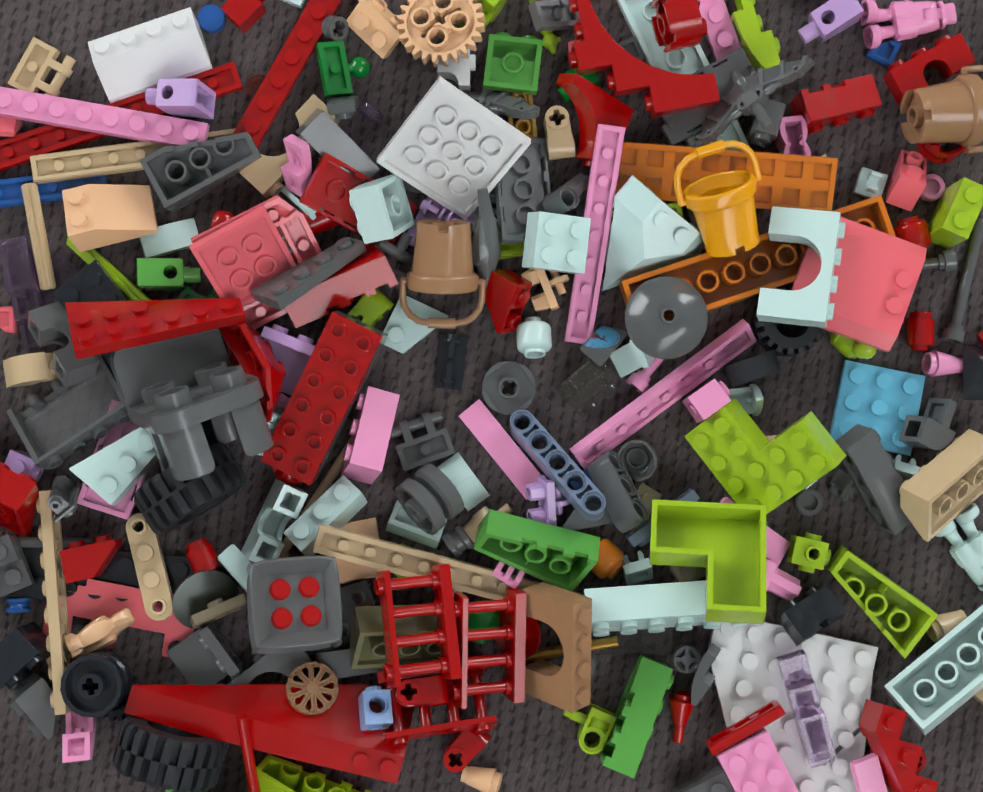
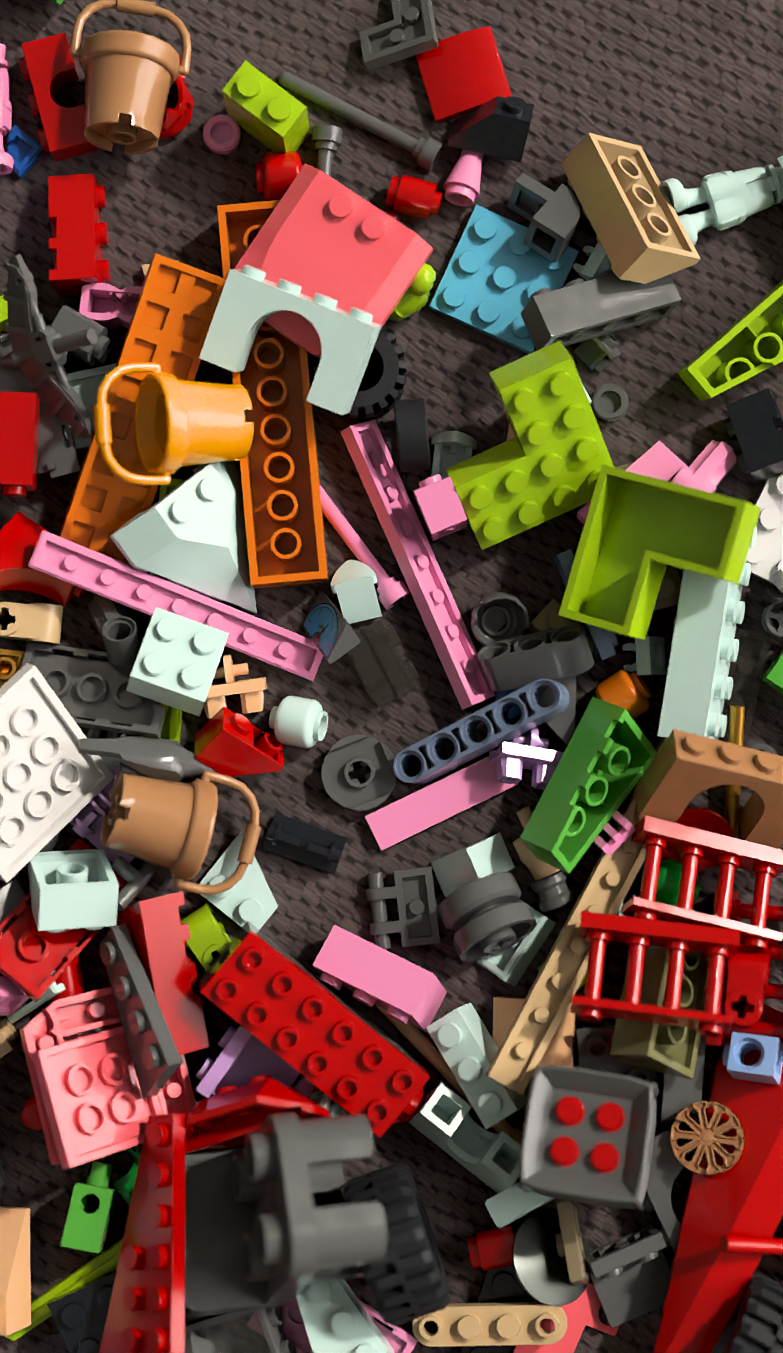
camera: 75 degrees left, 0 degrees up
(170, 238) = (41, 1193): light aqua slope -> none
(646, 319) = (319, 564): dark grey dish -> none
(799, 552) = (671, 431): lime brick -> none
(869, 183) = (197, 214): light aqua tile -> none
(907, 180) = (204, 163): coral slope -> none

